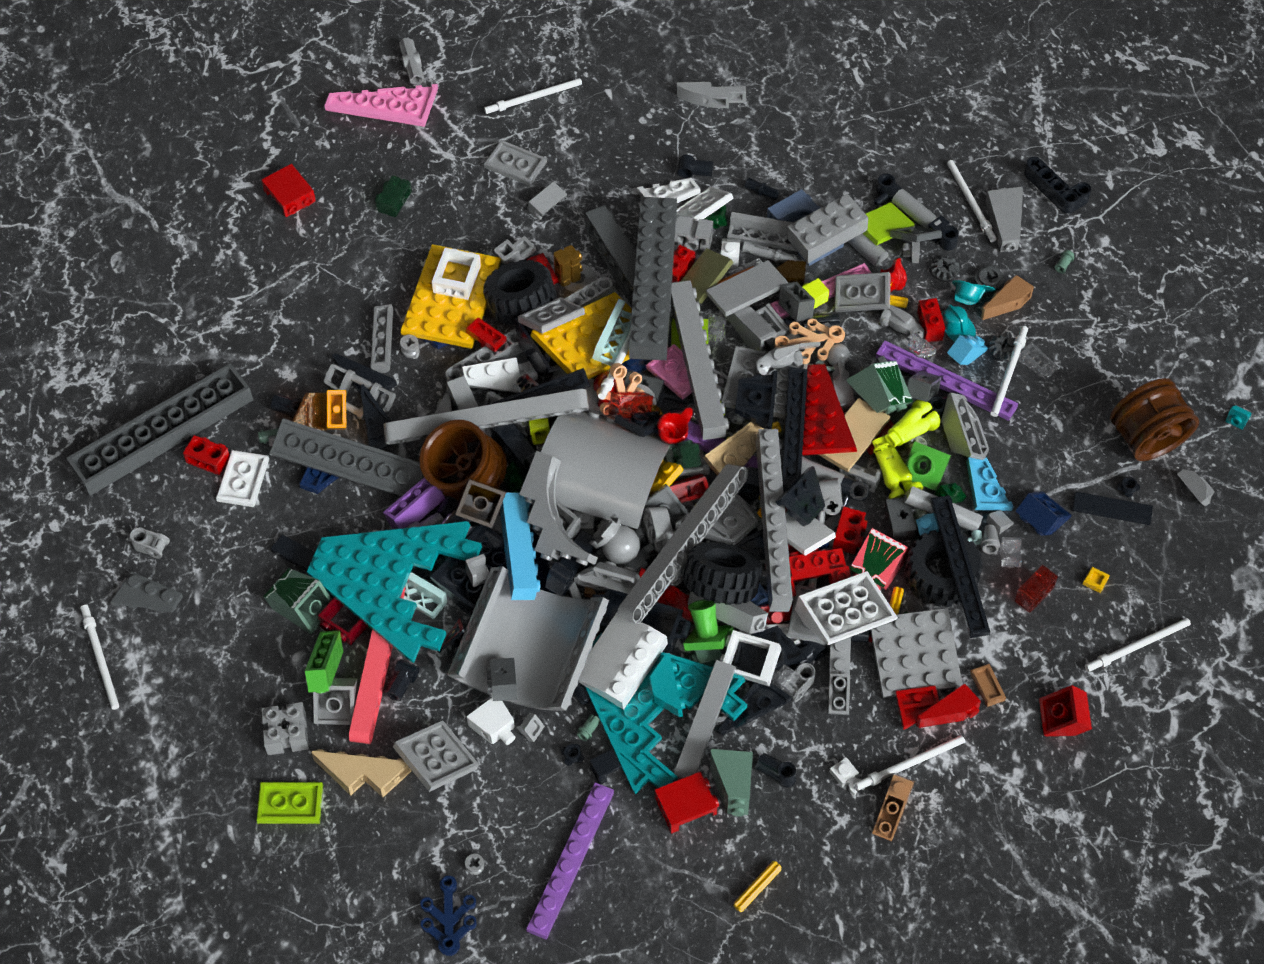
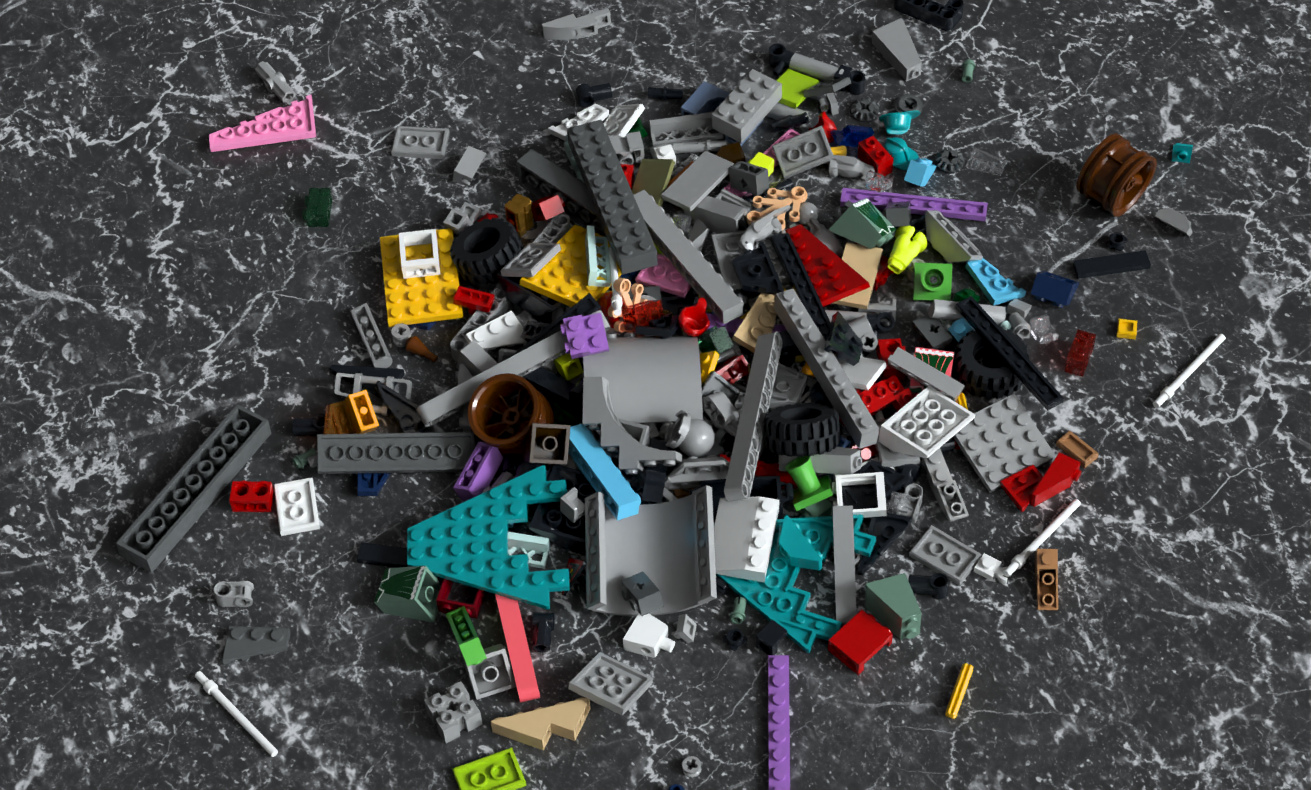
camera: 20 degrees left, 5 degrees down
(289, 190) = (212, 232): red panel -> none
(418, 362) = (416, 346): none -> reddish brown cone
(502, 105) = (383, 94): white bar -> none
(558, 409) = (584, 335): none -> medium lavender plate
(595, 267) = (547, 207): none -> brick
(724, 344) = (699, 234): none -> light grey slope
(809, 745) = (945, 555): none -> light grey tile
(865, 257) = (790, 122): none -> black pin
(870, 558) = (925, 374): none -> light grey fence
(893, 469) = (905, 293): neon yellow piece -> none
(916, 291) = (851, 135): none -> clear blue bracket
(985, 224) = (882, 61): white bar -> none
(1010, 298) = (936, 116): medium nougat slope -> none
(1019, 343) = (963, 151): white bar -> none
(1065, 712) = (1156, 447): red slope -> none

